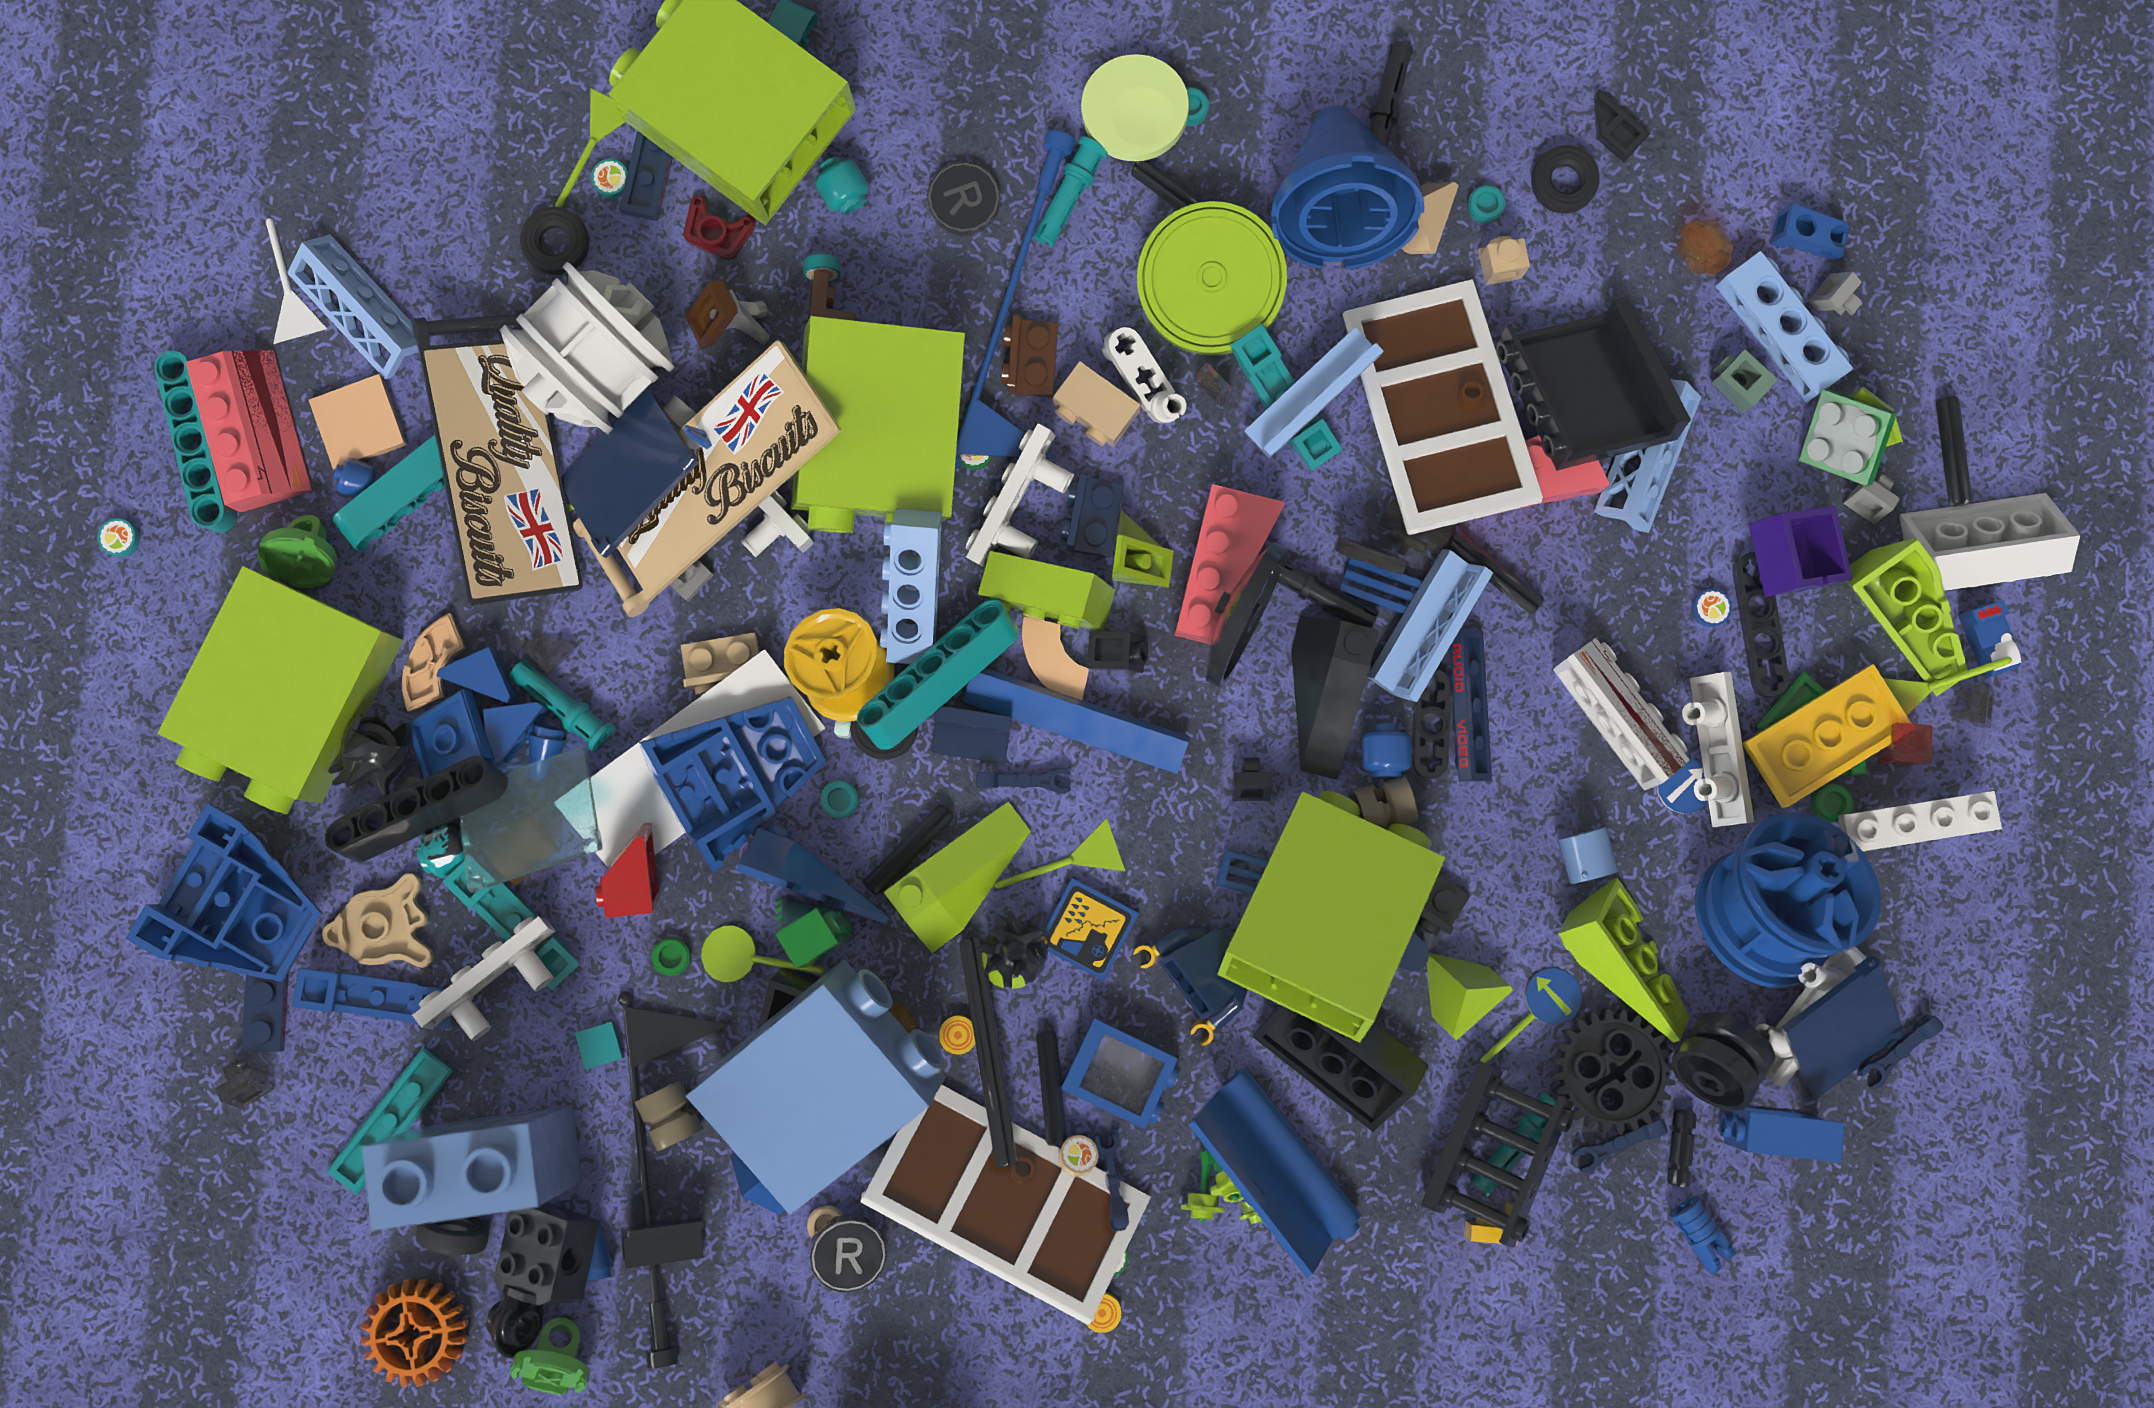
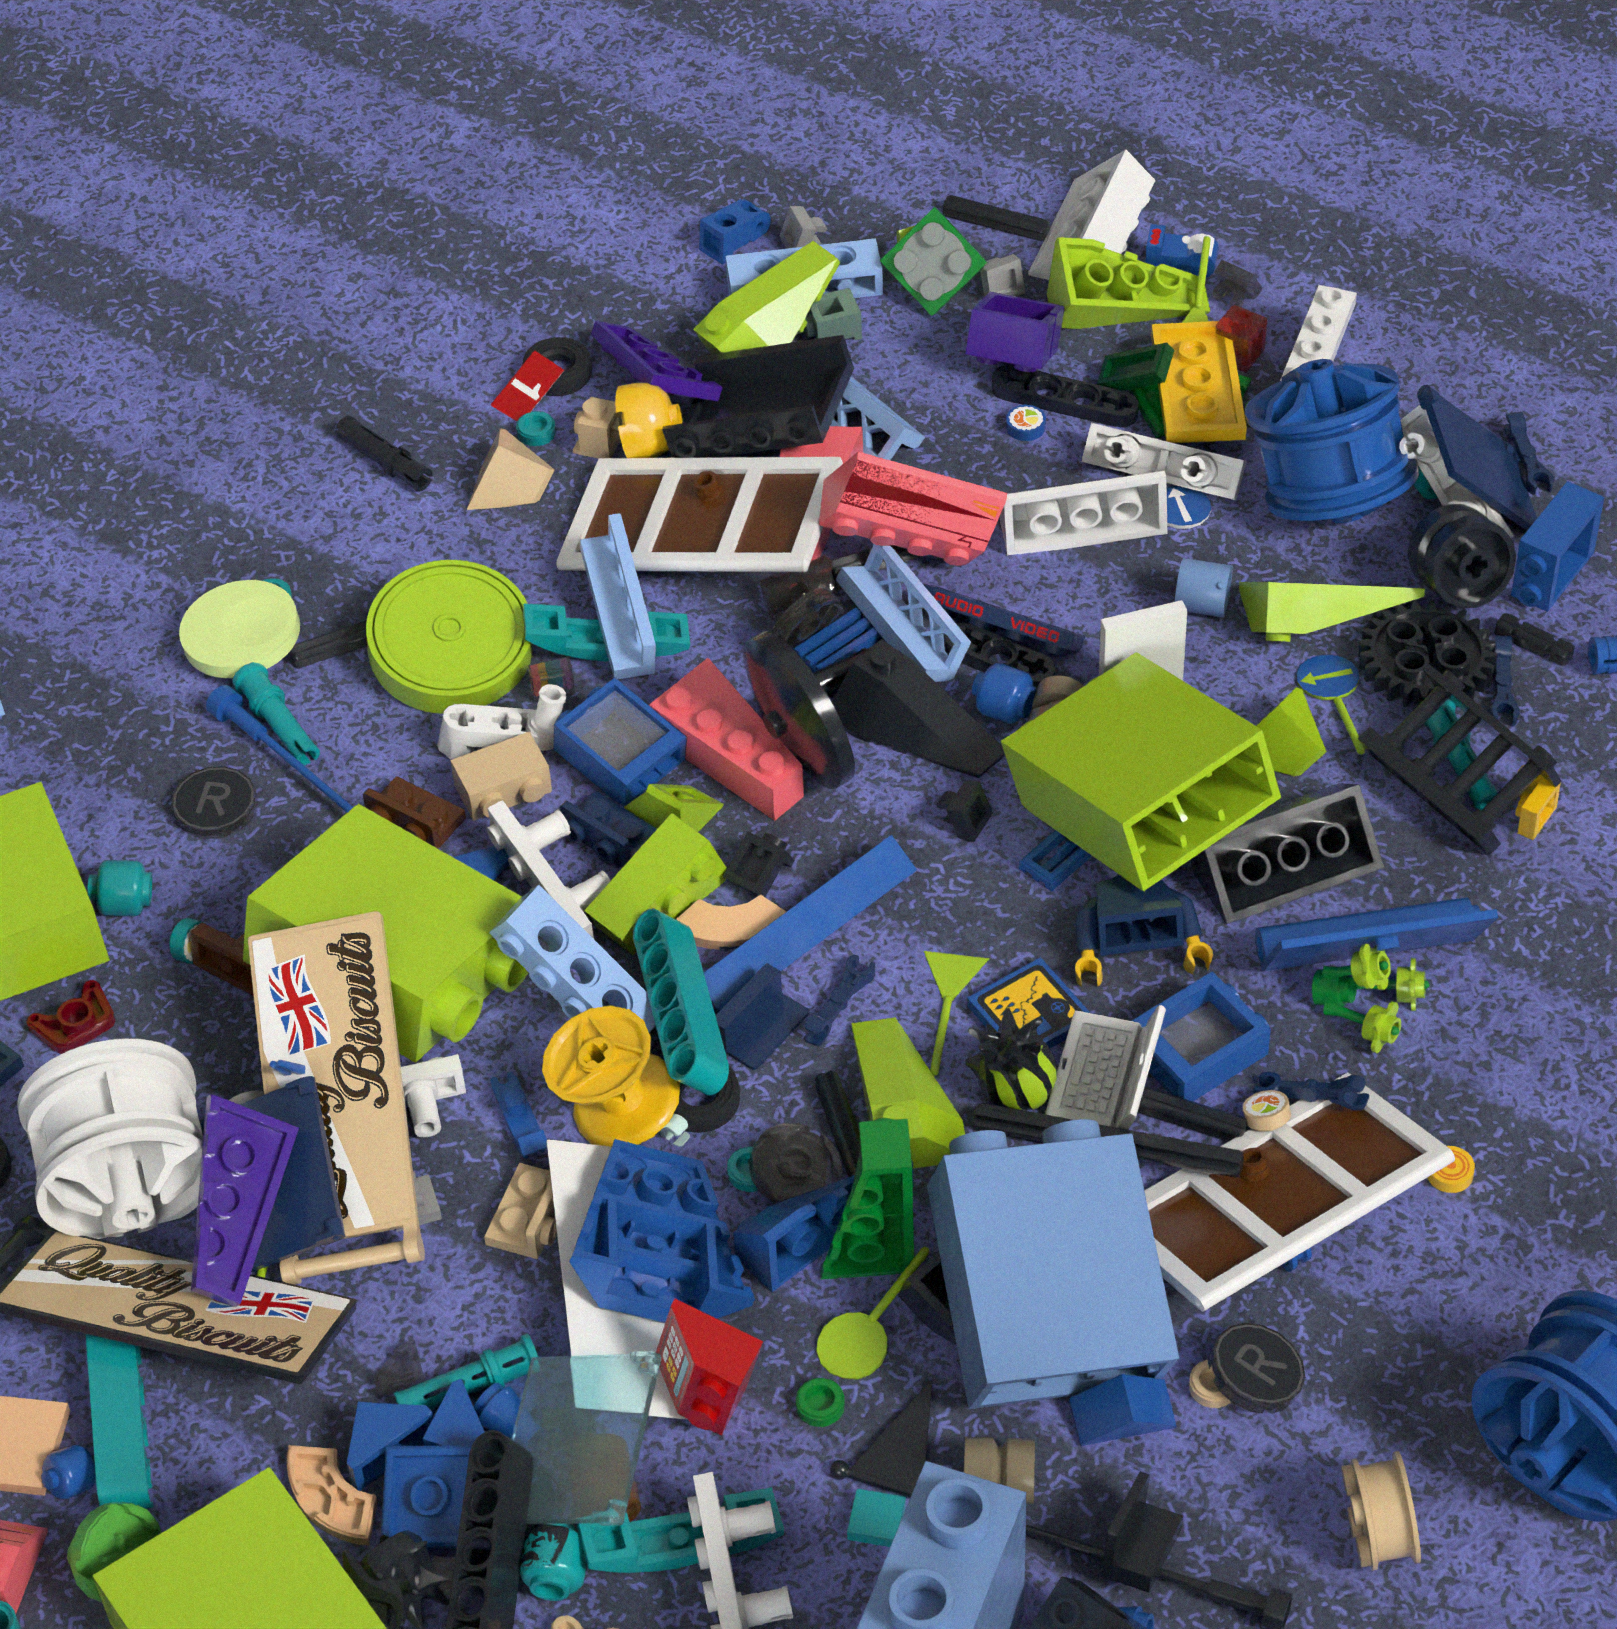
camera: 55 degrees left, 35 degrees down
(585, 465) = (237, 1190): none -> dark purple wing
(719, 310) = (173, 1024): reddish brown piece -> none
(797, 607) = (519, 1116): none -> blue piece
(852, 833) = (792, 1162): none -> clear smoke tile
(1043, 1026) = (1104, 1068): none -> white piece
(1176, 472) = (618, 742): none -> blue window
(1345, 196) = (454, 489): blue cone -> none
(1463, 855) = (1152, 632): none -> white tile
(1515, 584) = (910, 508): none -> coral slope
(1524, 299) = (644, 414): none -> yellow cylinder
(1525, 170) = (527, 386): none -> red sticker
(1596, 262) = (650, 364): none -> dark purple wing
(1616, 127) = (538, 317): black tile -> none
(1705, 247) = (692, 296): clear orange head -> none
(1709, 328) = (771, 305): none -> lime wedge
(1814, 674) = (1136, 367): none -> dark green tile

